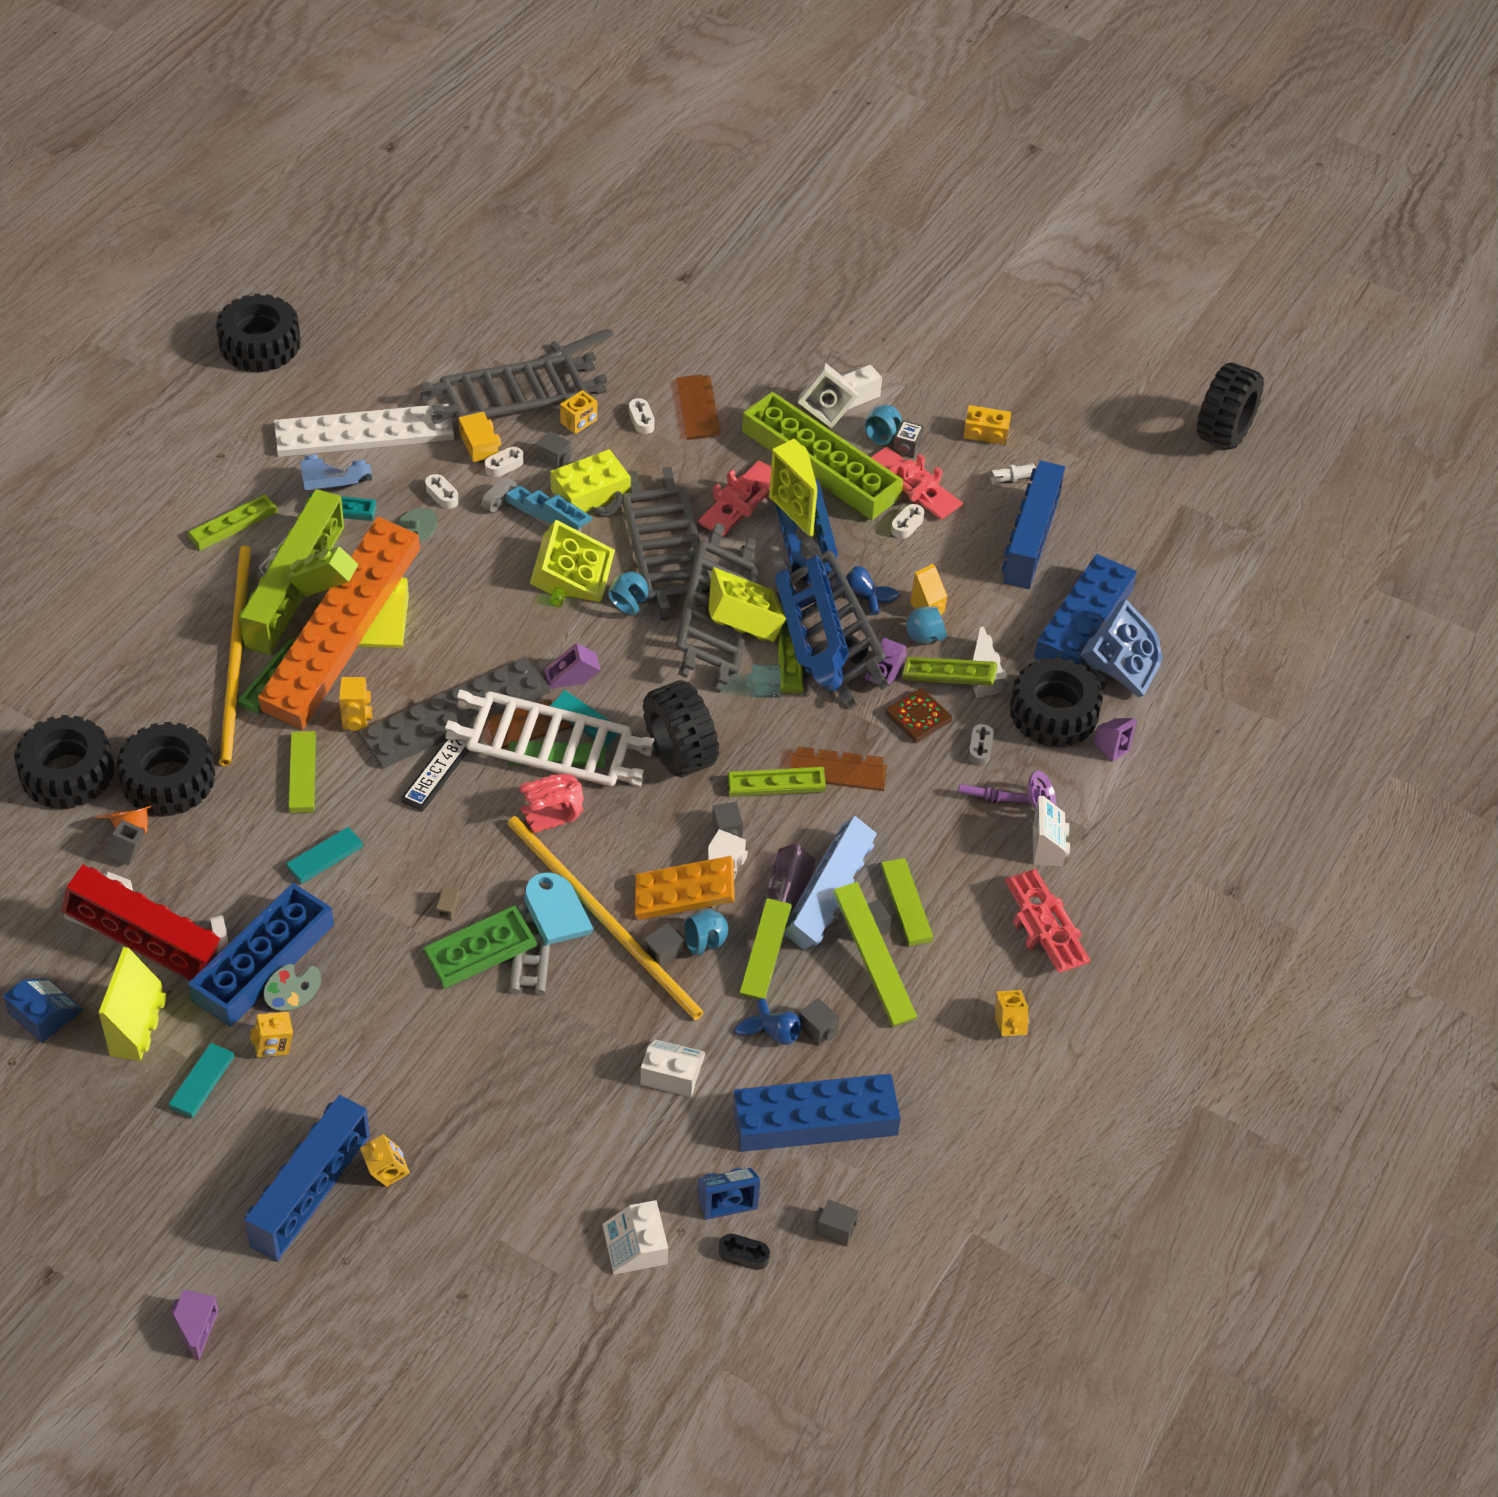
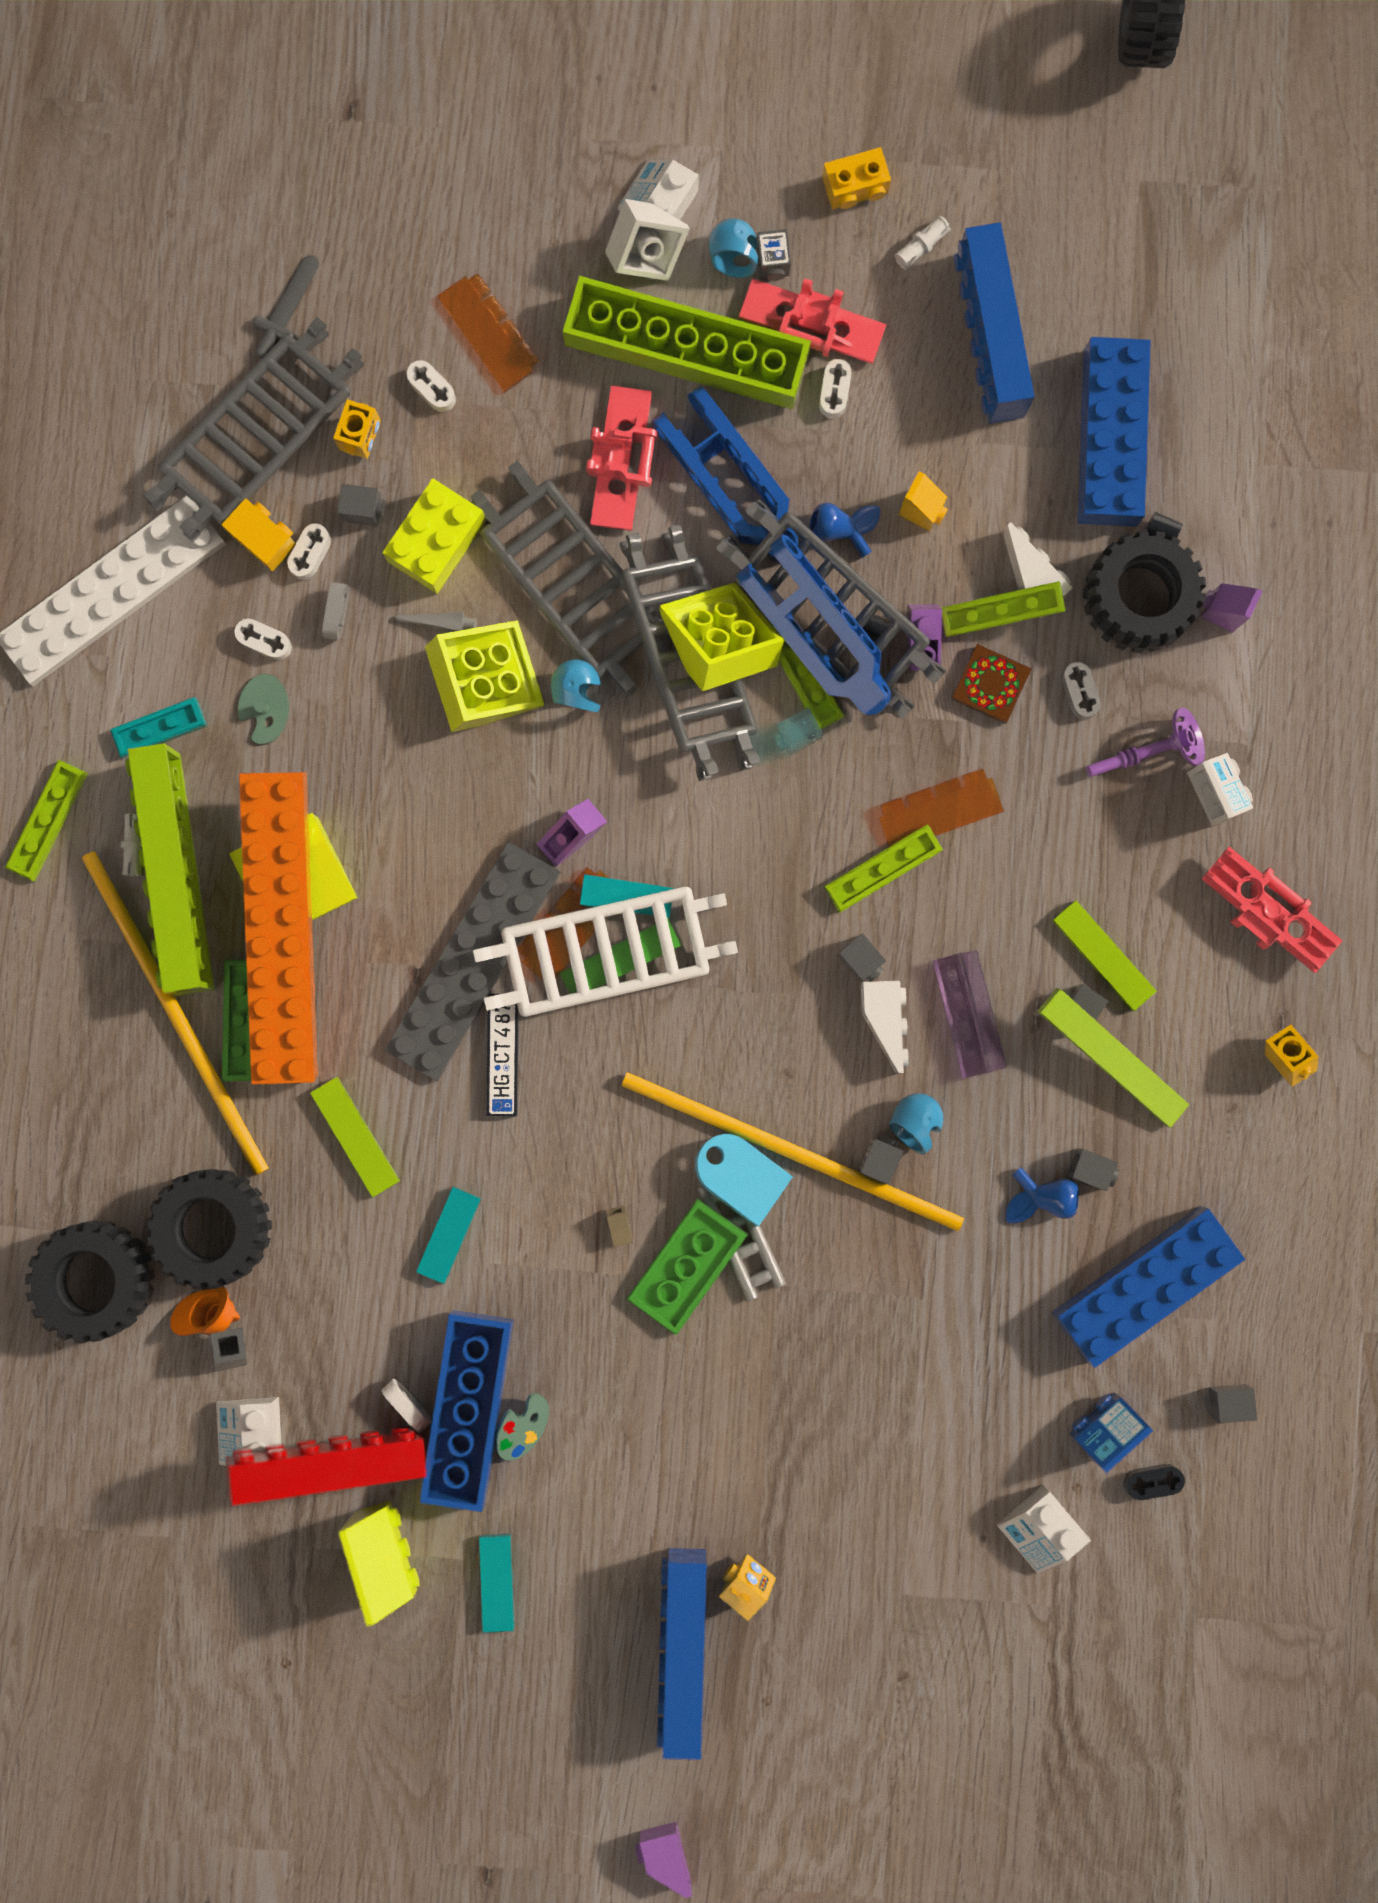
camera: 25 degrees left, 35 degrees up
(40, 1006) = (275, 1591): blue slope -> none
(272, 1034) = (540, 1503): yellow head -> none
(321, 475) = (128, 703): medium blue slope -> none
(322, 571) = (223, 888): lime brick -> none
(355, 703) = (363, 1027): yellow brick -> none
(547, 508) = (407, 605): dark azure slope -> none
(552, 801) = (661, 1043): coral piece -> none
(557, 597) = (493, 730): clear neon green piece -> none
(611, 508) = (478, 556): dark grey piece -> none
(671, 1067) = (969, 1303): white slope -> none
(681, 728) = (757, 878): black tyre -> none
(684, 888) = (867, 1079): light orange plate -> none
(765, 949) = (994, 1112): lime tile -> none
(794, 484) = (700, 438): neon yellow slope -> none
(835, 870) = (1015, 983): light blue brick -> none
(925, 625) = (941, 553): dark azure helmet -> none
(1126, 649) = (1192, 474): medium blue slope -> none

